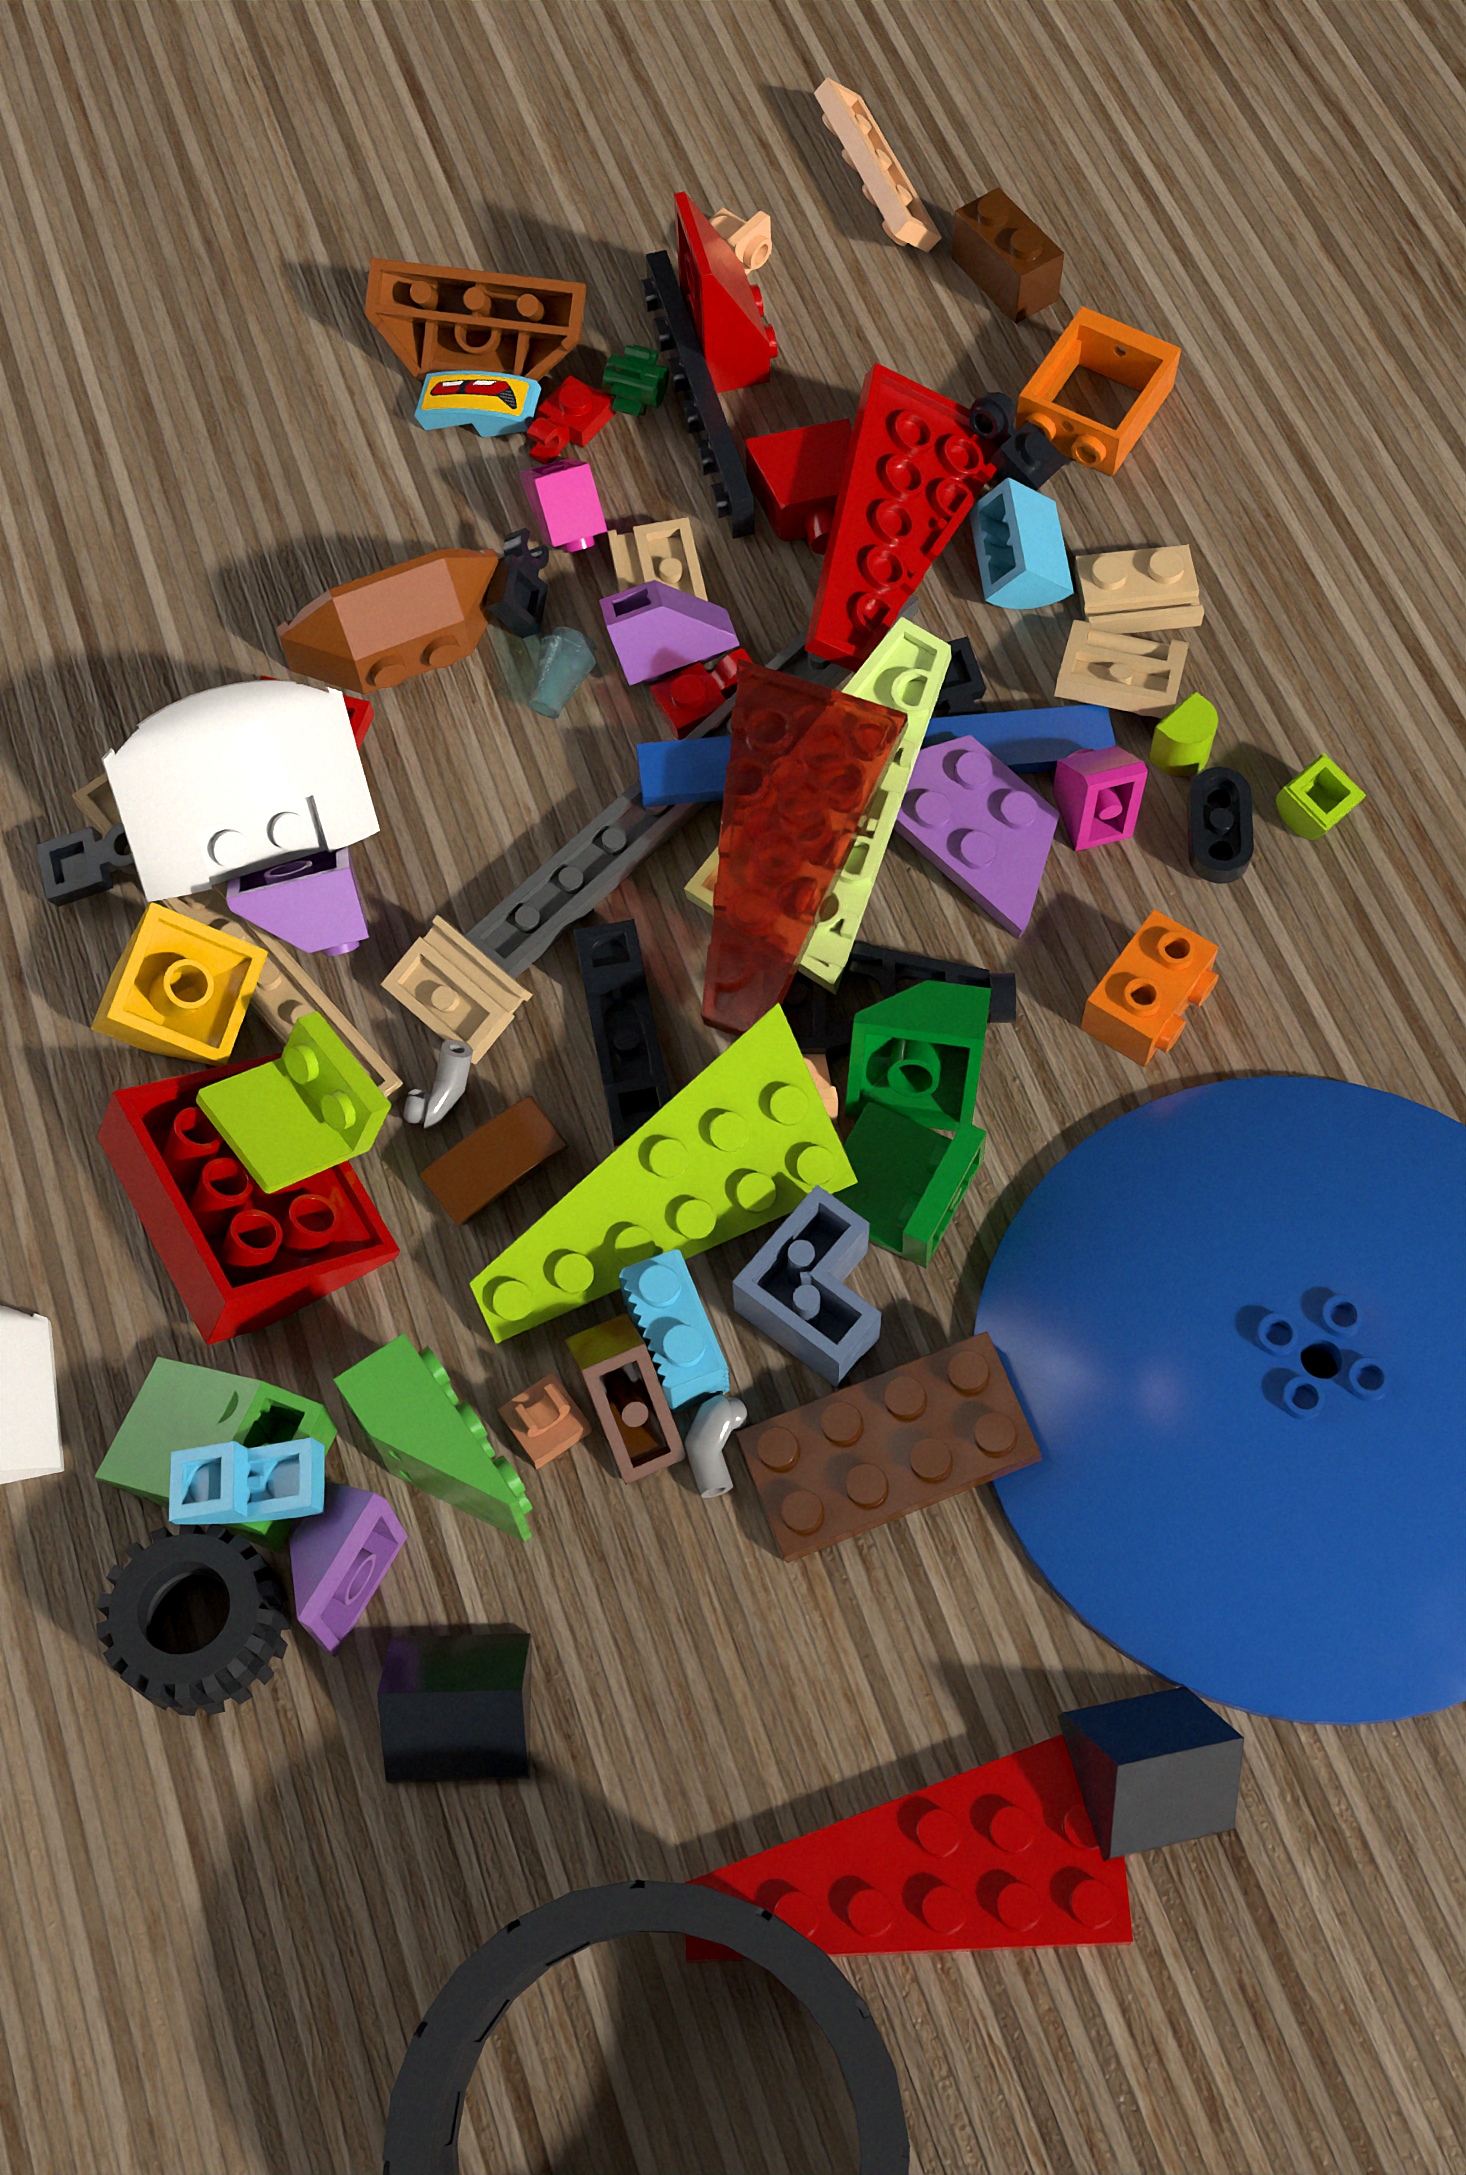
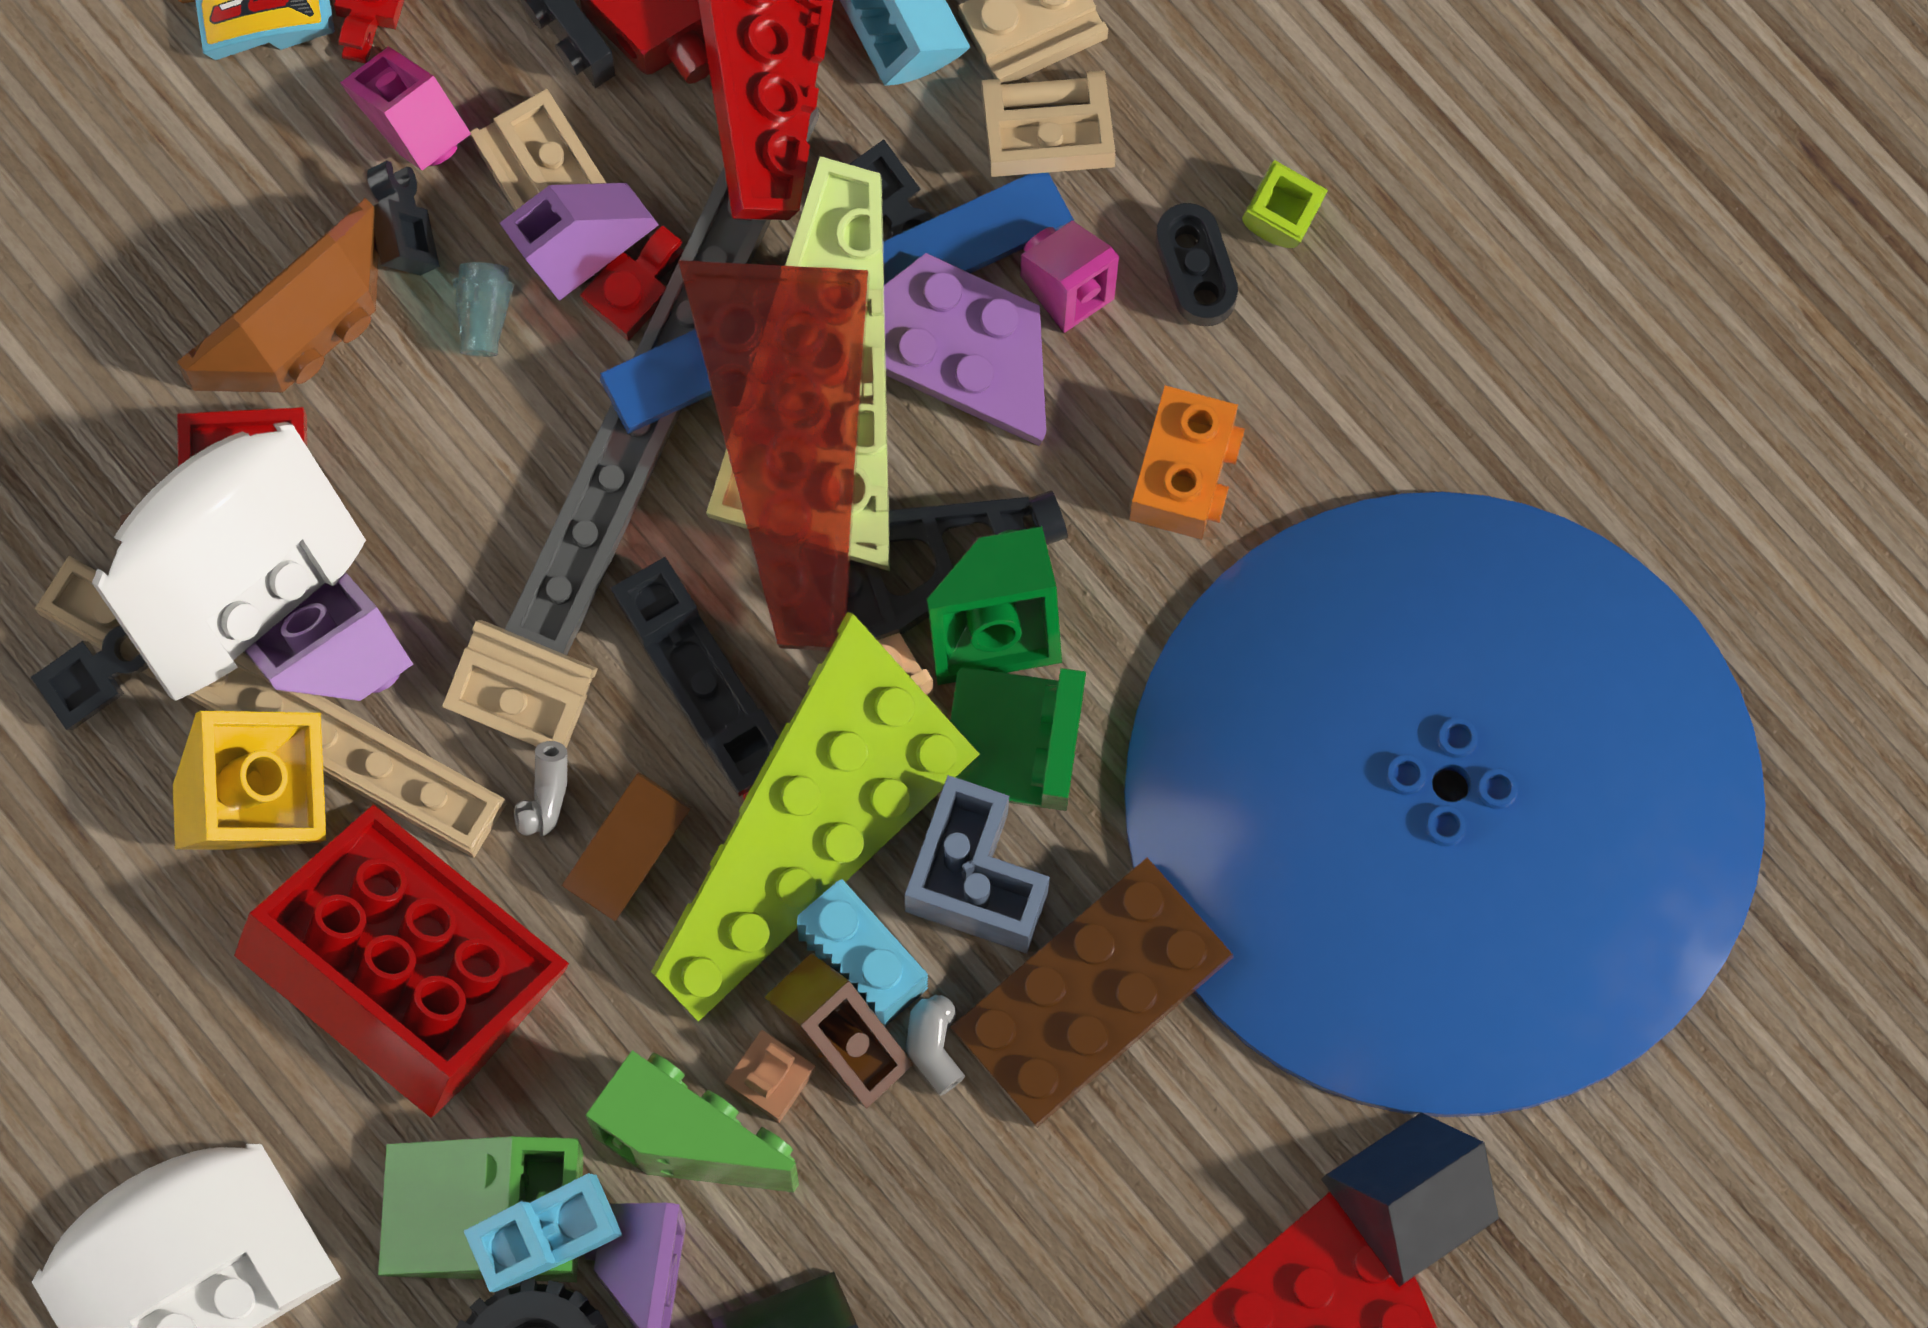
camera: 25 degrees left, 10 degrees up
(298, 1109) = (423, 863): lime bracket -> none
(1185, 737) = (1134, 180): lime brick -> none

